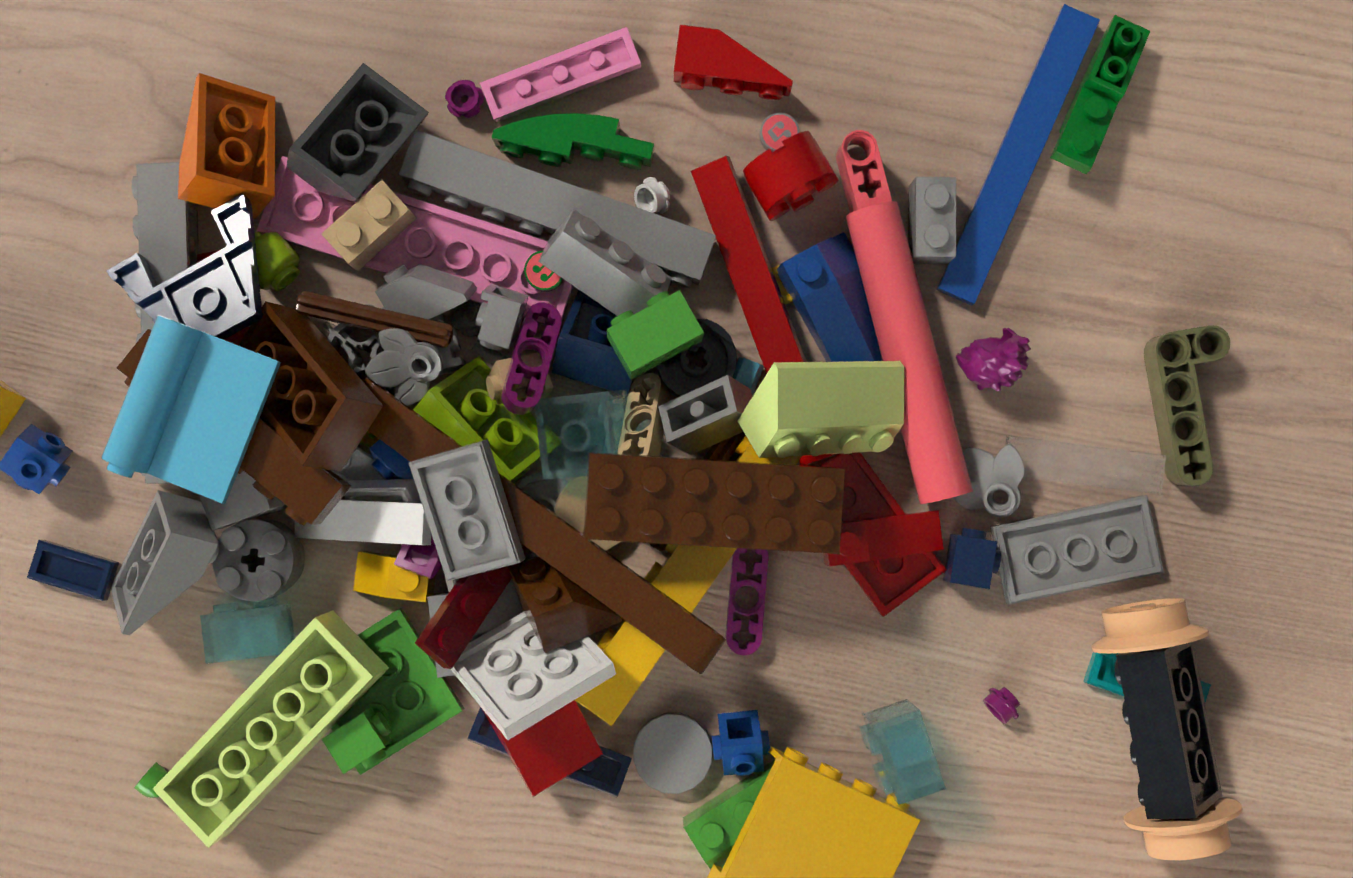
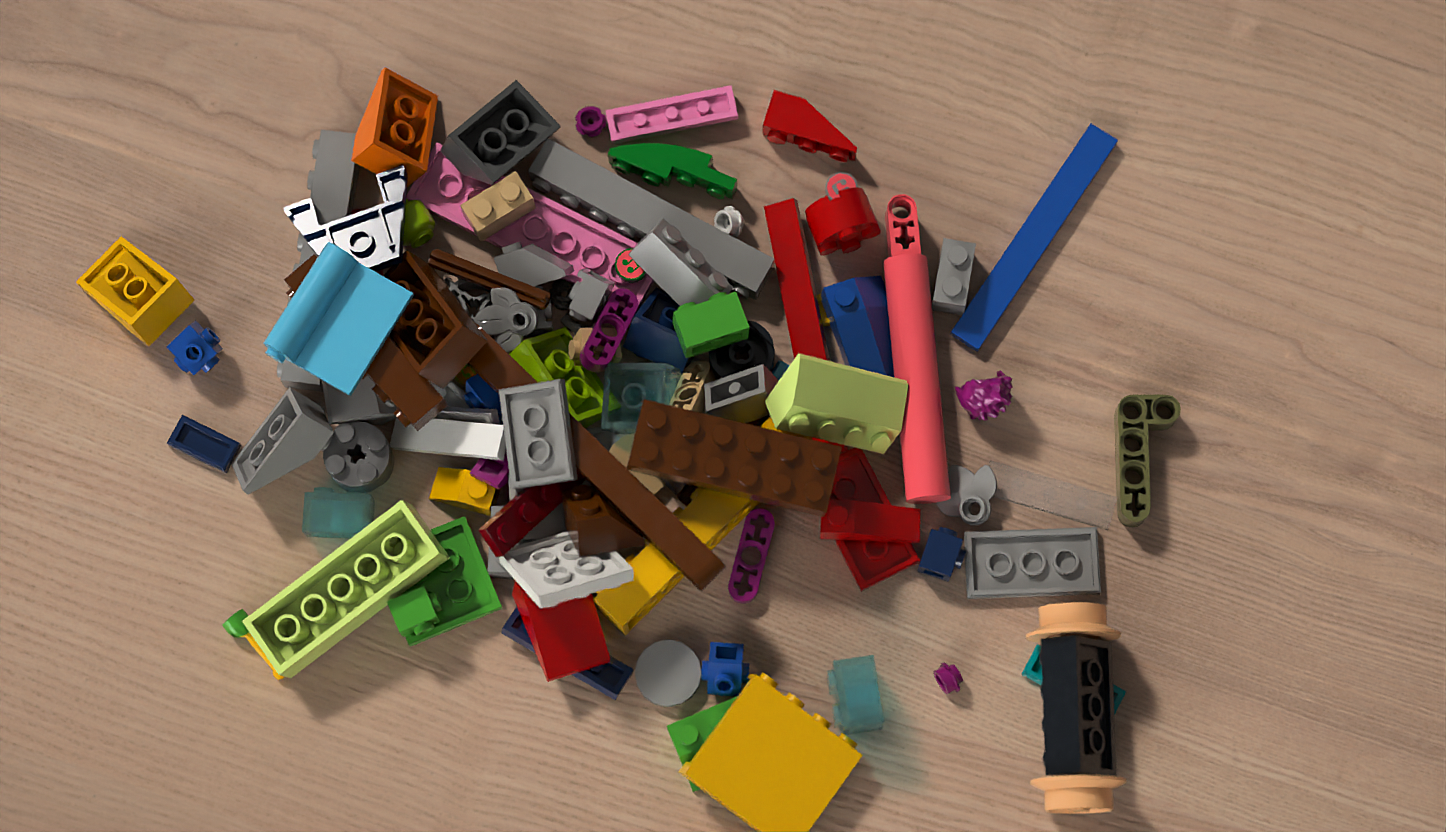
camera: 20 degrees right, 10 degrees down
(1099, 94) = (1107, 198): green slope -> none

